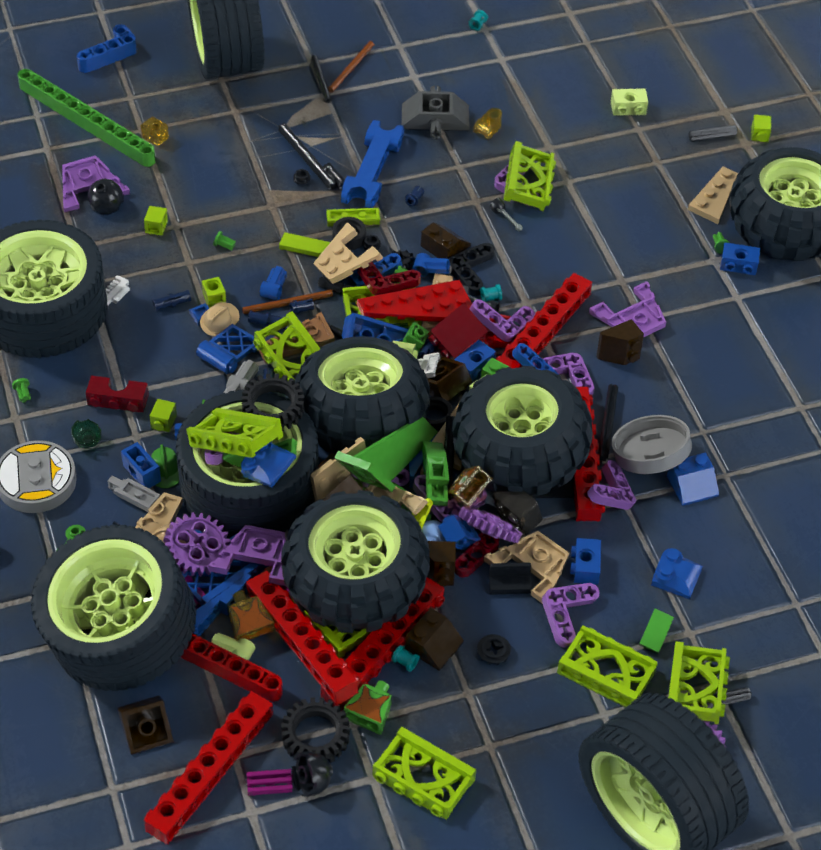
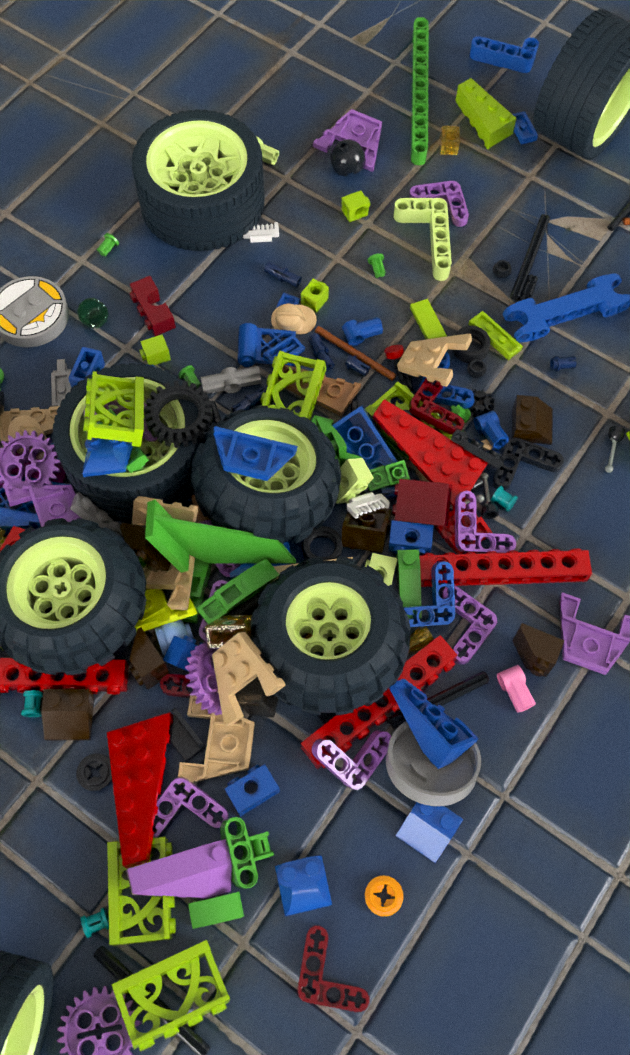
camera: 55 degrees right, 15 degrees up
(151, 96) = (485, 113): none -> lime wedge
(188, 86) = (524, 129): none -> blue plate
(217, 180) = (436, 213): none -> yellowish green beam
(225, 169) = (448, 195): none -> medium lavender beam
(246, 348) = (267, 354): none -> blue tile
(275, 524) = (87, 510): none -> light grey hinge
(311, 278) = (394, 351): none -> red tile
(355, 374) = (251, 454): none -> blue wing
(441, 277) = (476, 447): none -> black hinge
(502, 492) = (235, 667): none -> tan wing
(519, 617) = (137, 779): none -> red wing
(609, 705) = (101, 916): none -> teal bush
(621, 624) = (191, 873): none -> medium lavender wedge
(628, 590) = (253, 847): none -> bright green piece
(630, 374) = (514, 682): none -> bright pink piece
(640, 427) = (435, 732): none -> blue wedge
(718, 527) = (393, 888): none -> light orange gear
(752, 603) = (322, 986): none -> dark red beam

